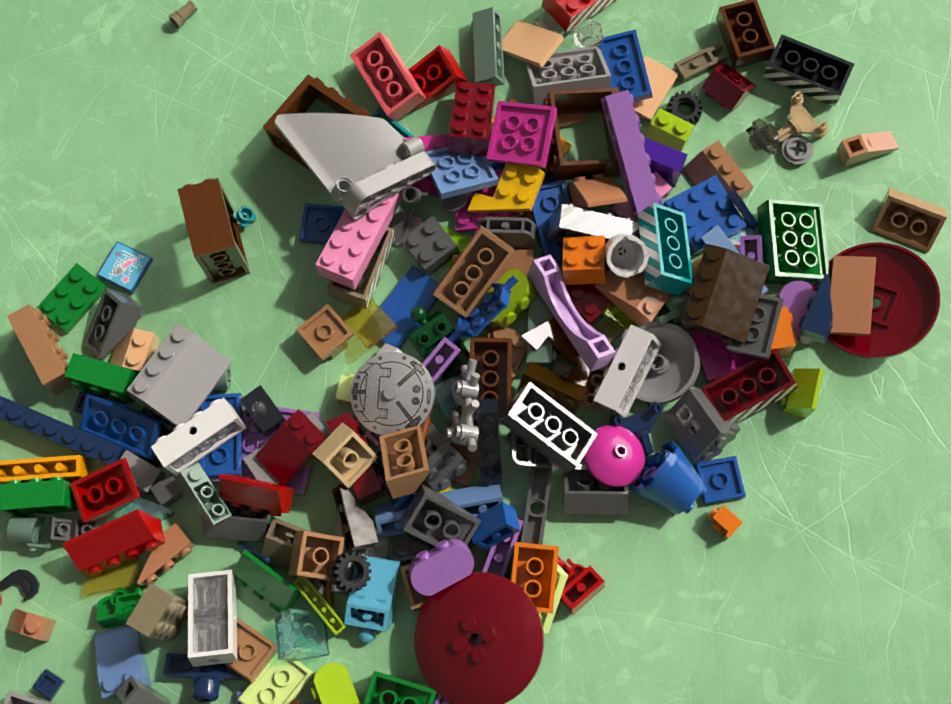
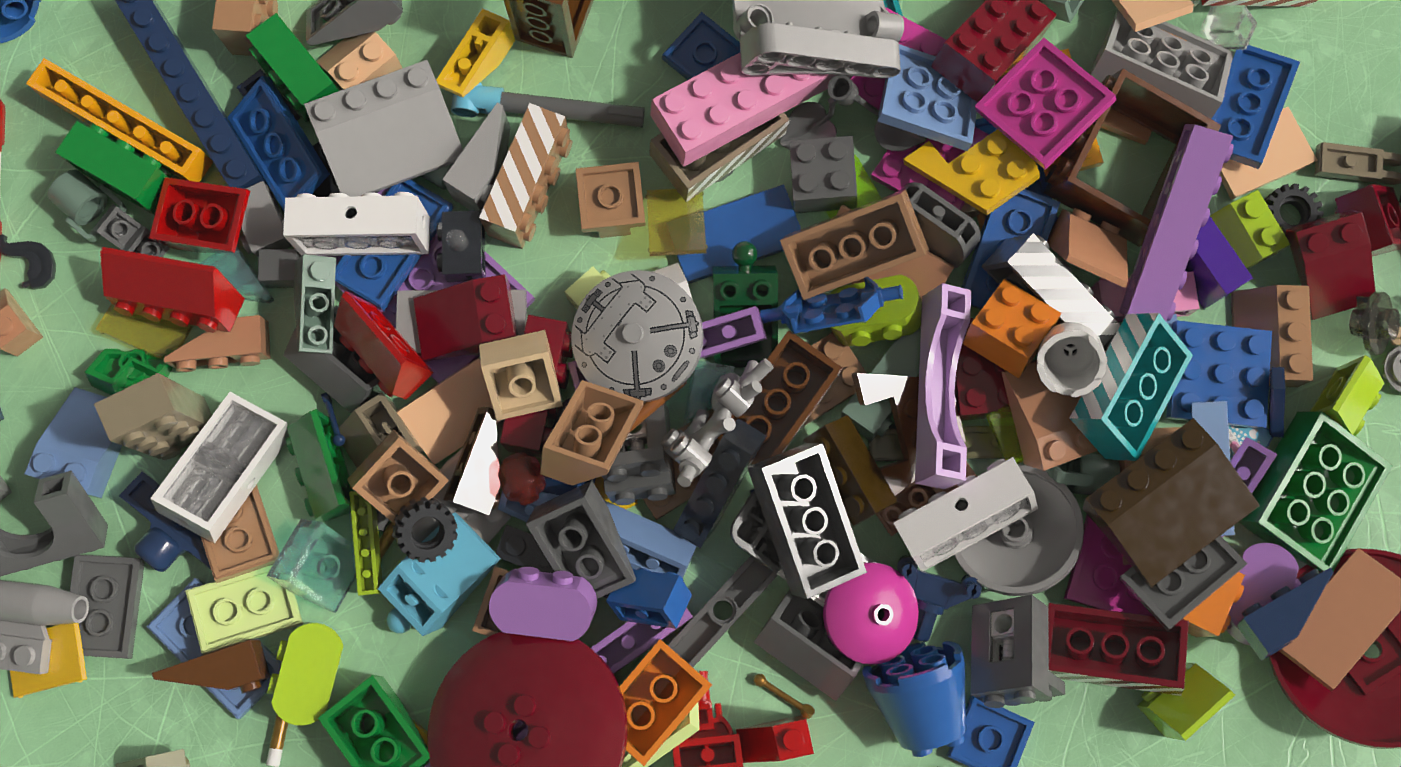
camera: 30 degrees right, 5 degrees up
(199, 303) = (477, 53): none -> yellow slope
(211, 329) = (484, 98): none -> dark grey piece
(243, 367) = (480, 162): none -> light grey slope
(272, 351) = (526, 176): none -> medium nougat brick
(316, 505) = (446, 412): none -> light nougat tile
(382, 510) = (521, 478): none -> clear red head
(612, 554) = (776, 740): none -> red slope
(616, 531) = (806, 710): none -> pearl gold hinge
(722, 120) = (1334, 261): none -> dark red slope
(777, 180) = (1351, 393): none -> lime slope

